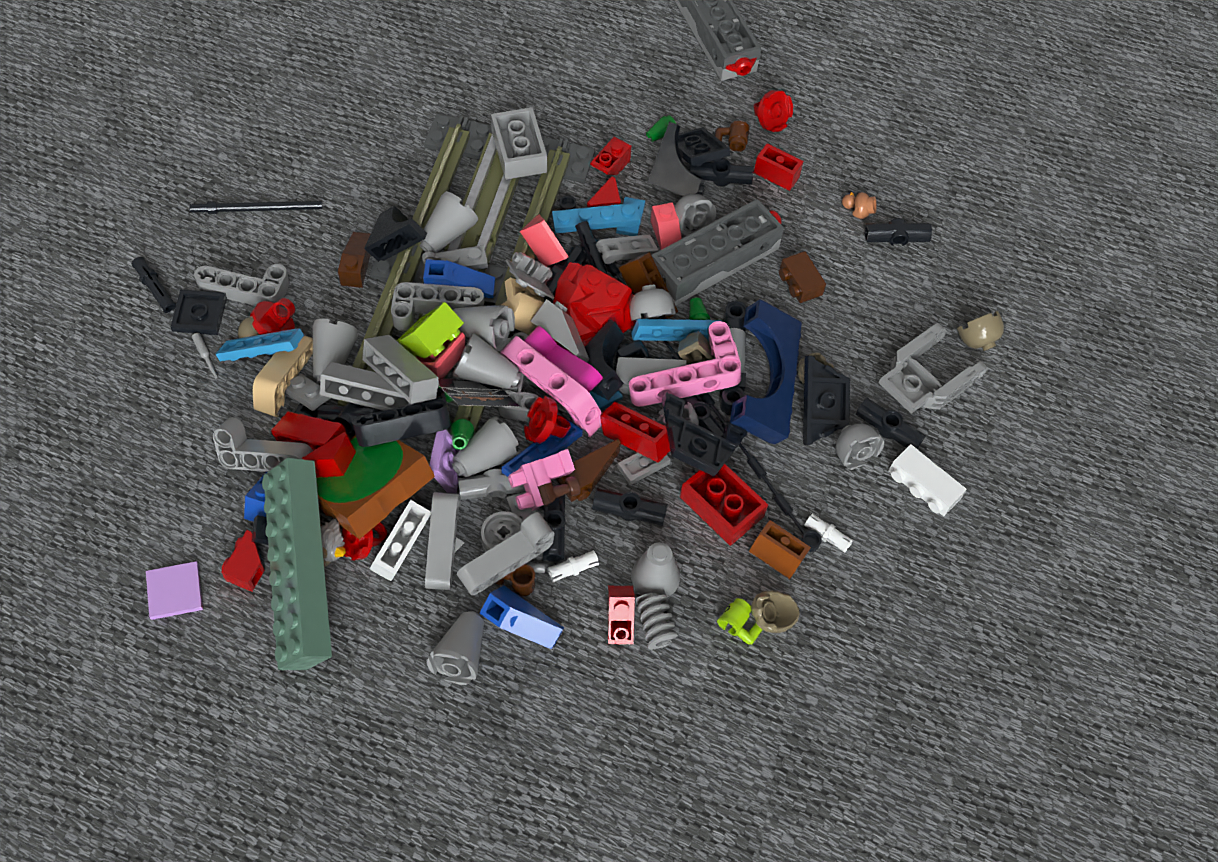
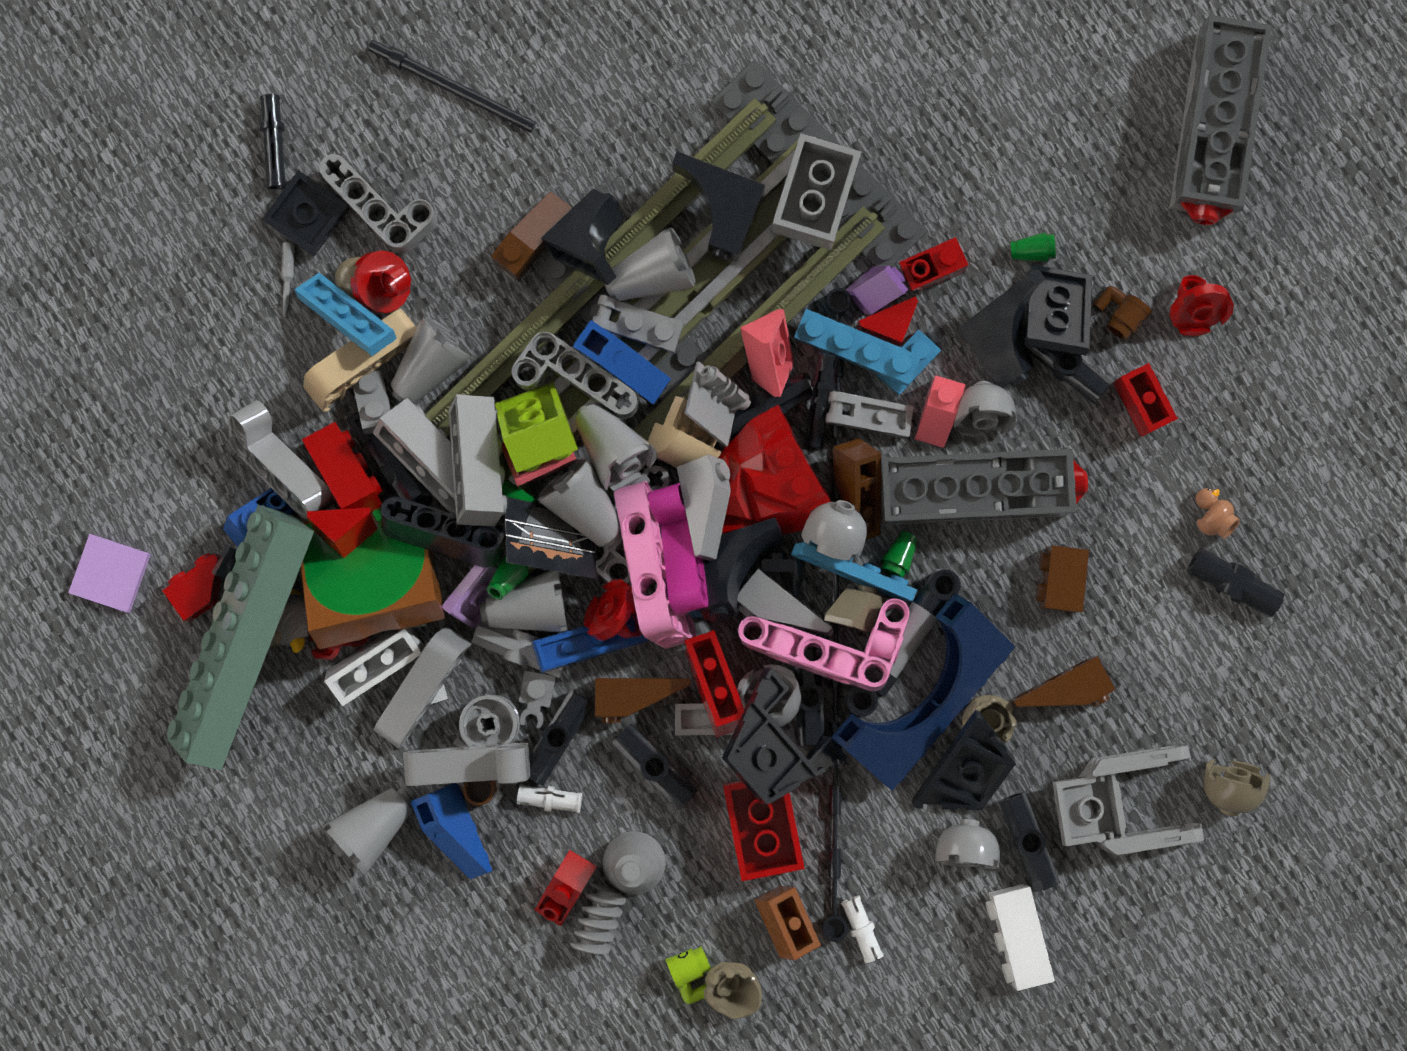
camera: 35 degrees right, 25 degrees up
(465, 170) = (731, 202): none -> black arch
(538, 484) = (559, 686): bright pink hips -> none
(587, 181) = (877, 288): none -> medium lavender slope
(850, 330) = (1078, 685): none -> reddish brown slope

